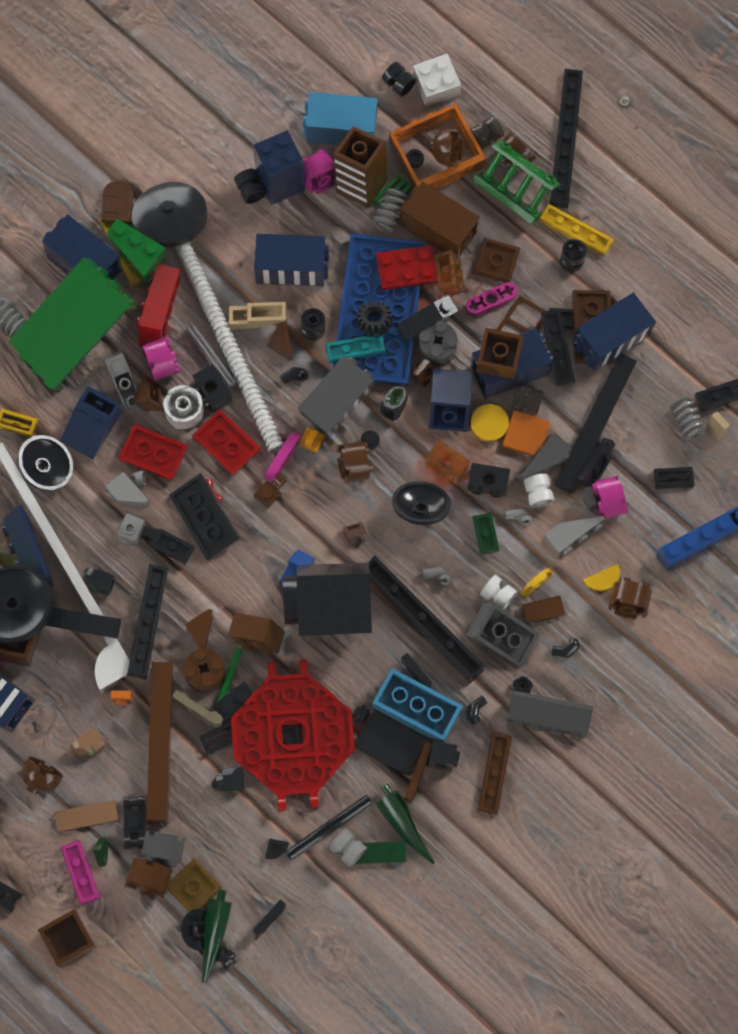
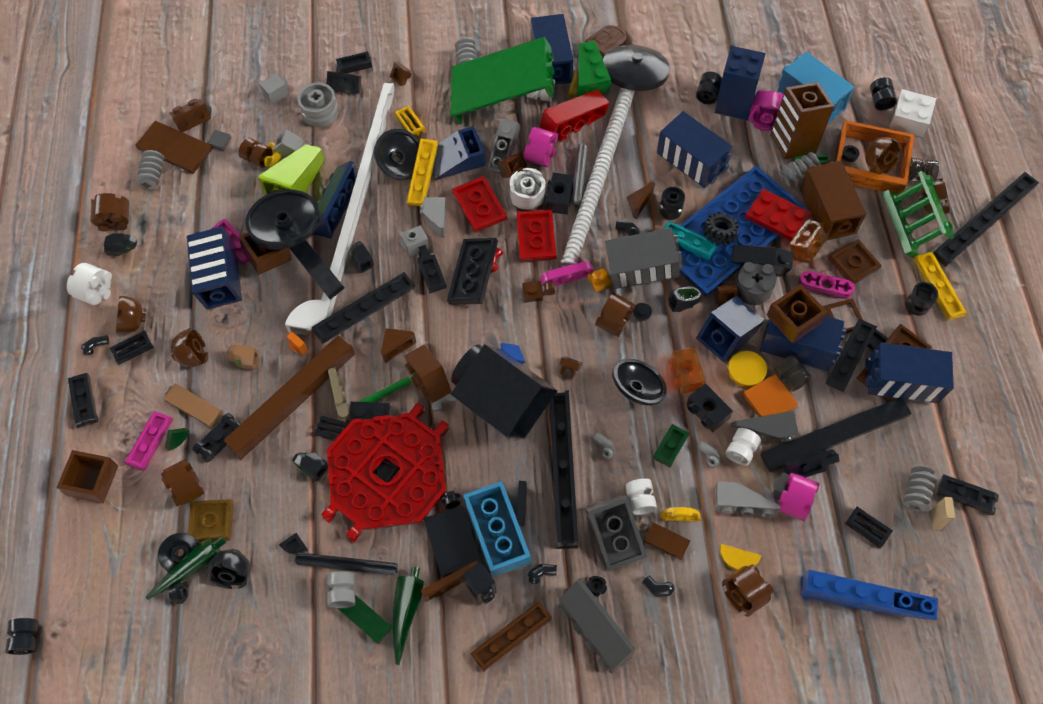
camera: 45 degrees right, 10 degrees down
(78, 463) = (422, 172): none -> yellow tile
(139, 478) = (453, 214): light grey hinge -> none
(163, 848) = (213, 470): dark grey brick -> none
(208, 680) = (368, 371): reddish brown brick -> none
(248, 905) = (229, 569): none -> black cylinder
(256, 315) = (635, 168): tan slope -> none
(269, 918) = (236, 592): black tile -> none

